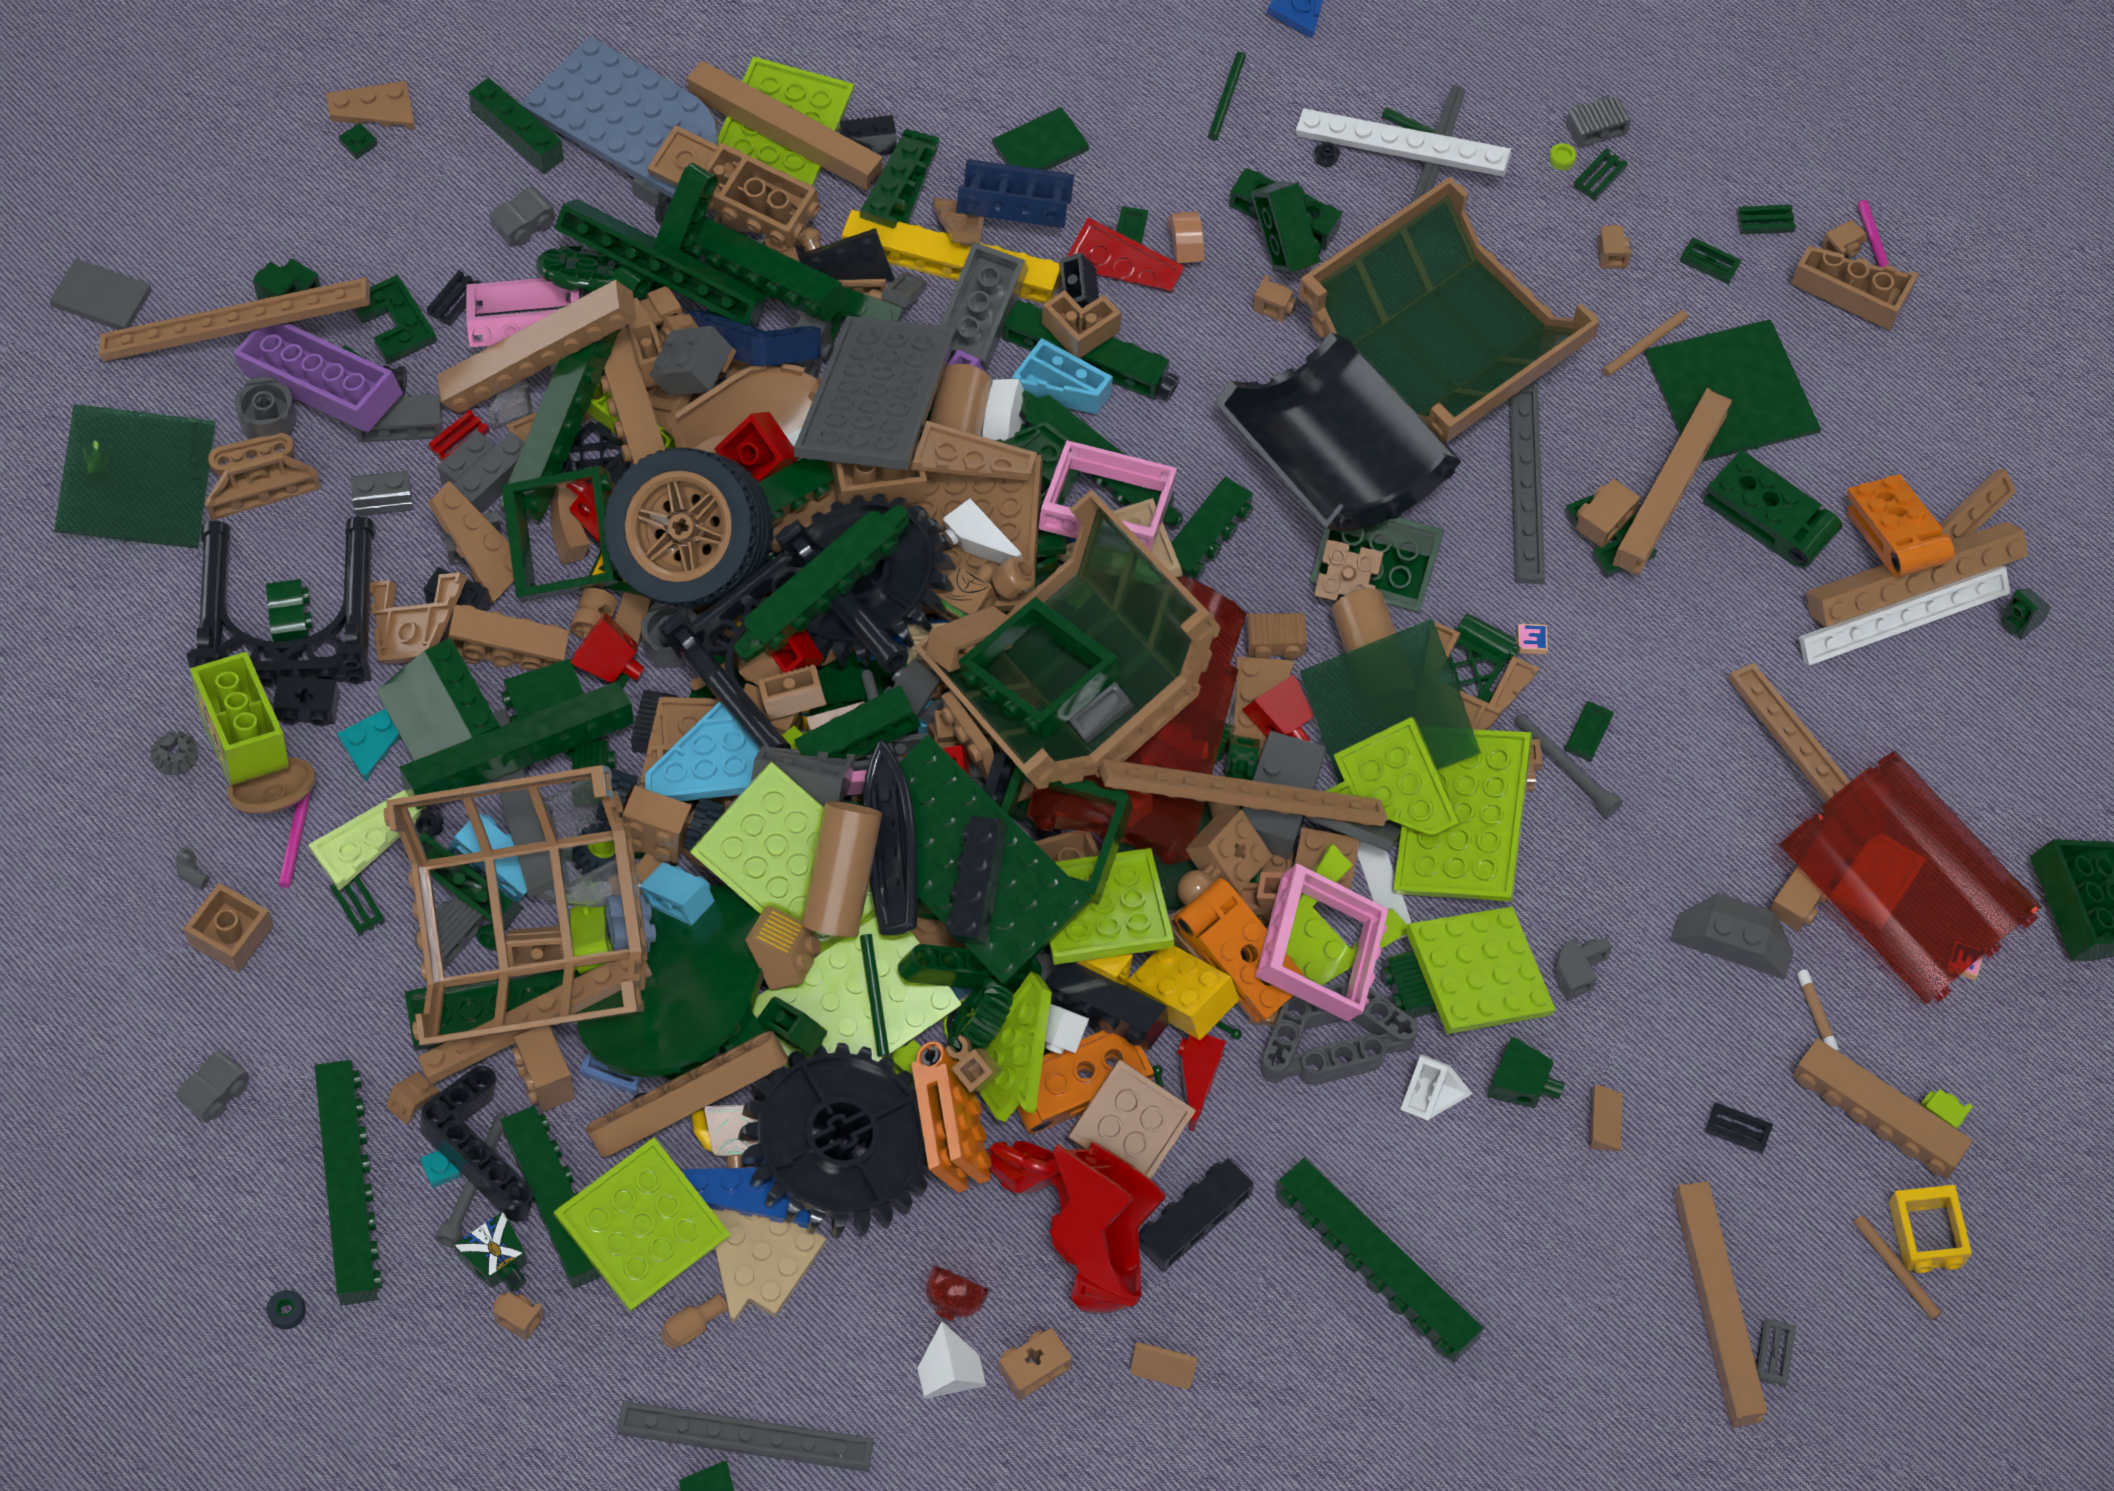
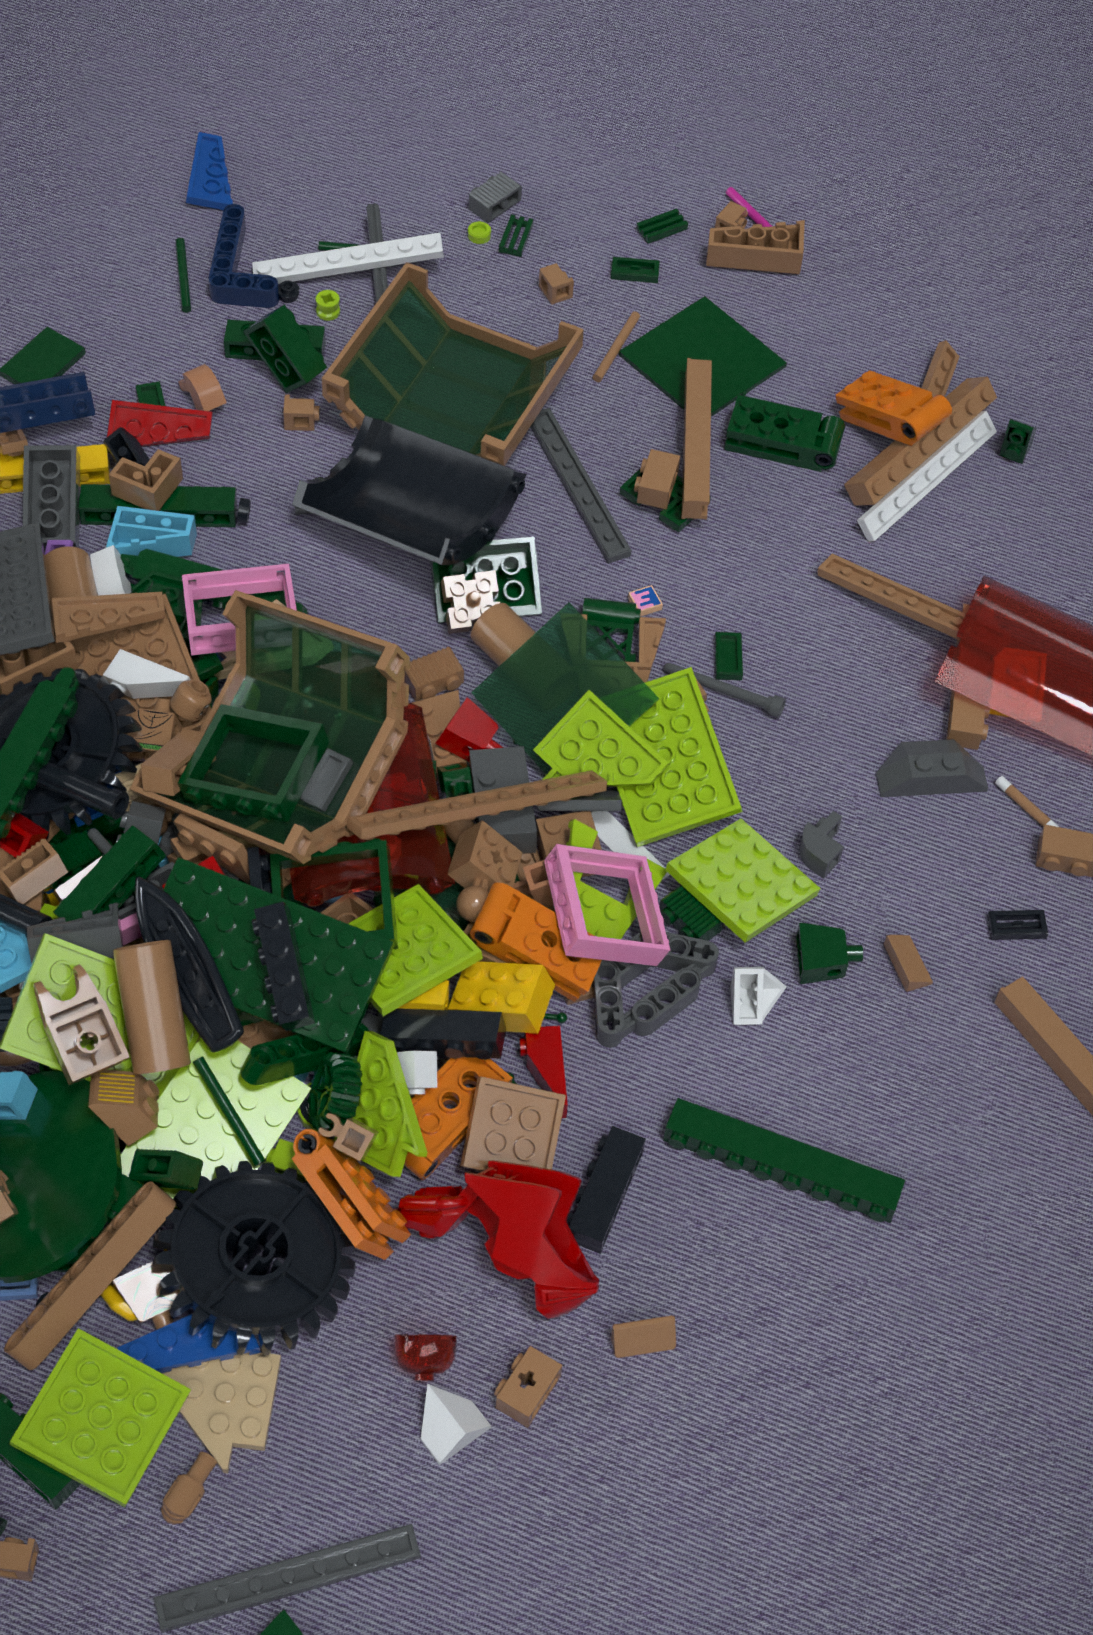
camera: 25 degrees left, 5 degrees down
(768, 852) = (80, 1017): none -> brick
(1211, 526) = (338, 594): dark green brick -> none
(1264, 119) = (225, 282): none -> dark blue beam
(1362, 192) = (327, 305): none -> lime wheel

